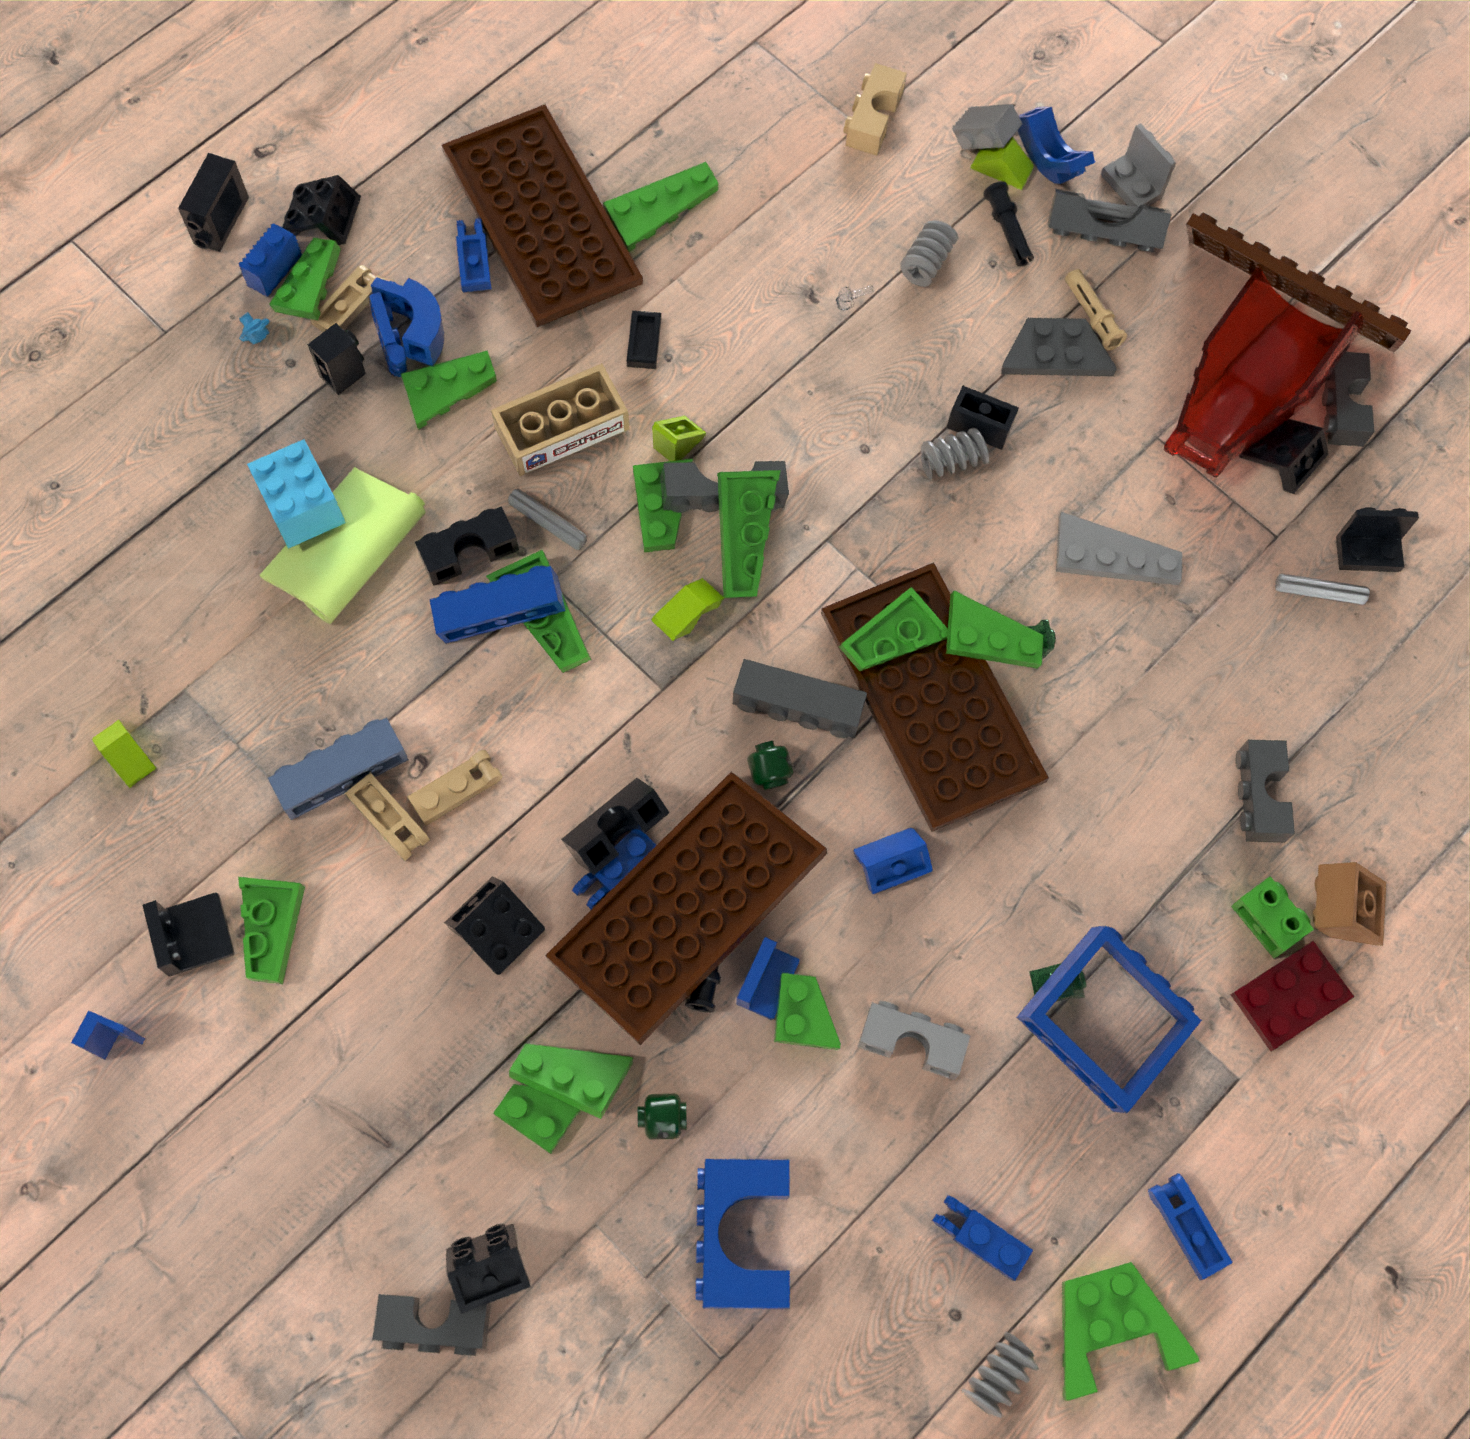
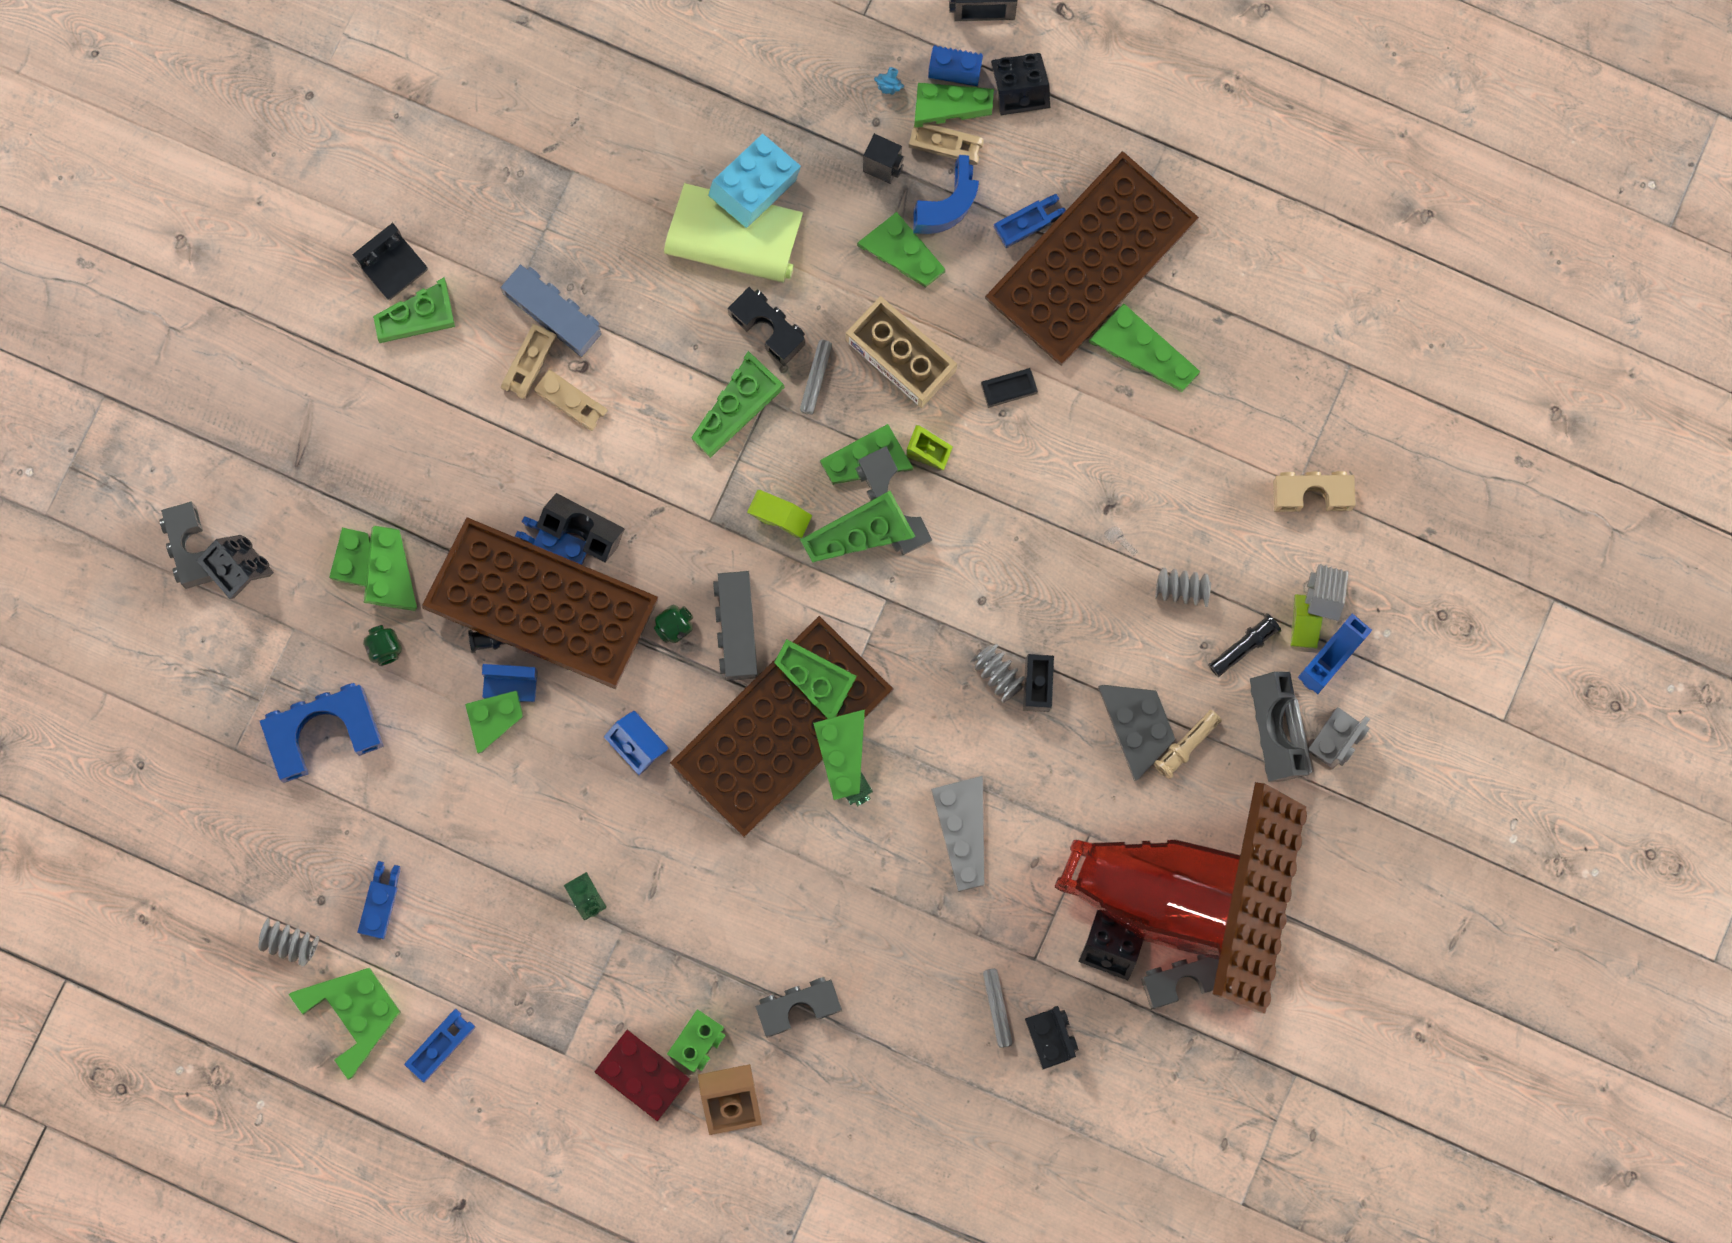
camera: 70 degrees right, 10 degrees up
(99, 1035) = (295, 236): blue panel -> none
(123, 753) = (506, 151): lime slope -> none
(388, 336) = (925, 187): blue hinge -> none
(495, 924) = (476, 472): black bracket -> none
(497, 604) = (722, 369): blue brick -> none
(943, 1045) = (505, 826): light grey arch -> none
(1037, 1021) = (613, 943): blue window -> none

